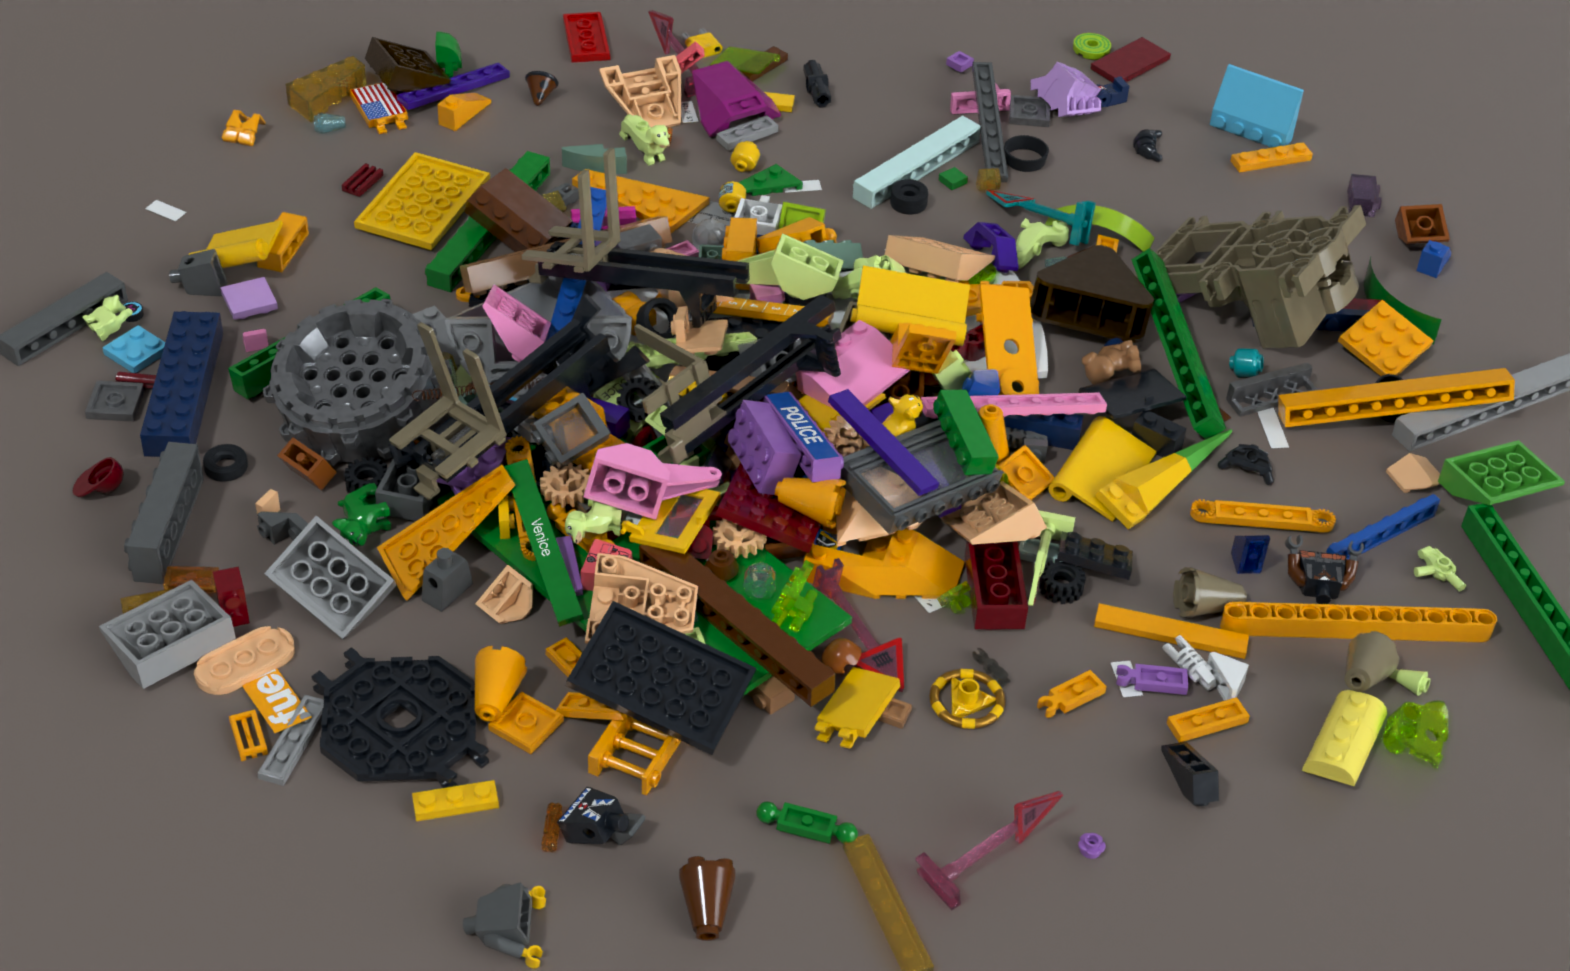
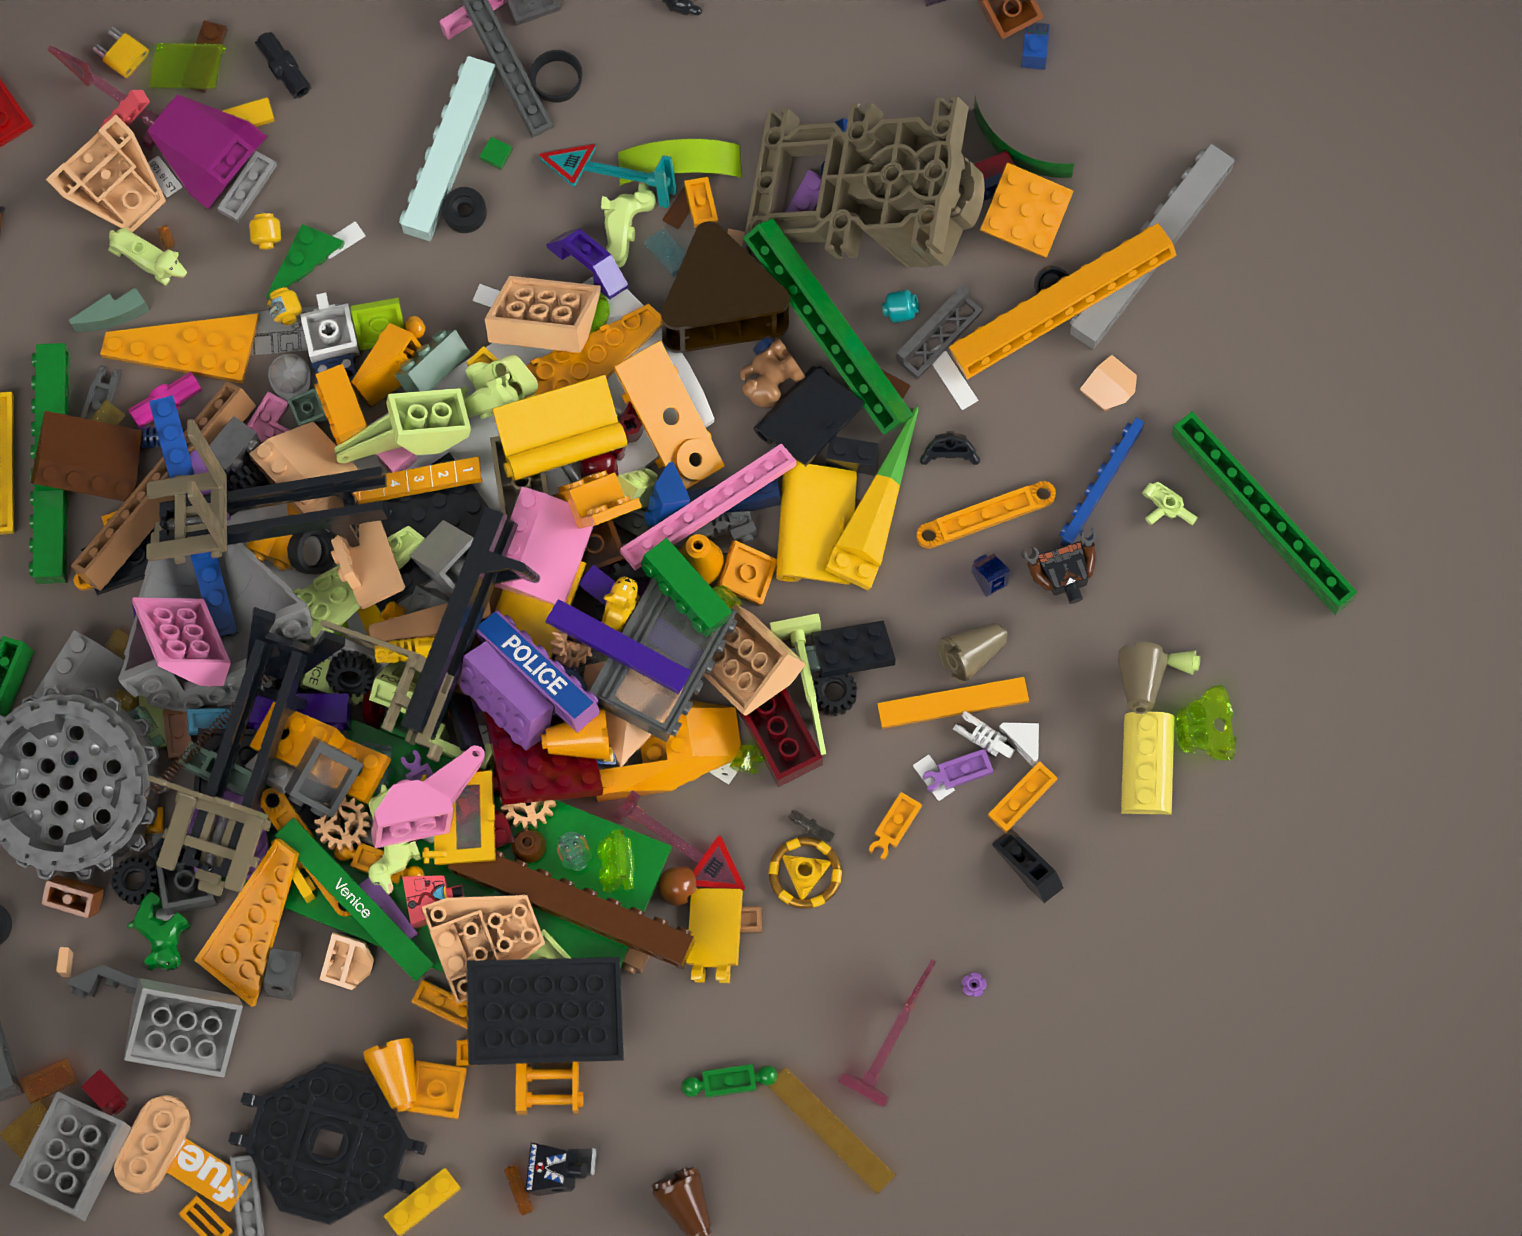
camera: 20 degrees left, 30 degrees up
(988, 179) = (536, 143): clear yellow brick -> none
(1351, 620) = (1122, 604): light orange beam -> none
(1497, 474) = (1192, 366): bright green slope -> none

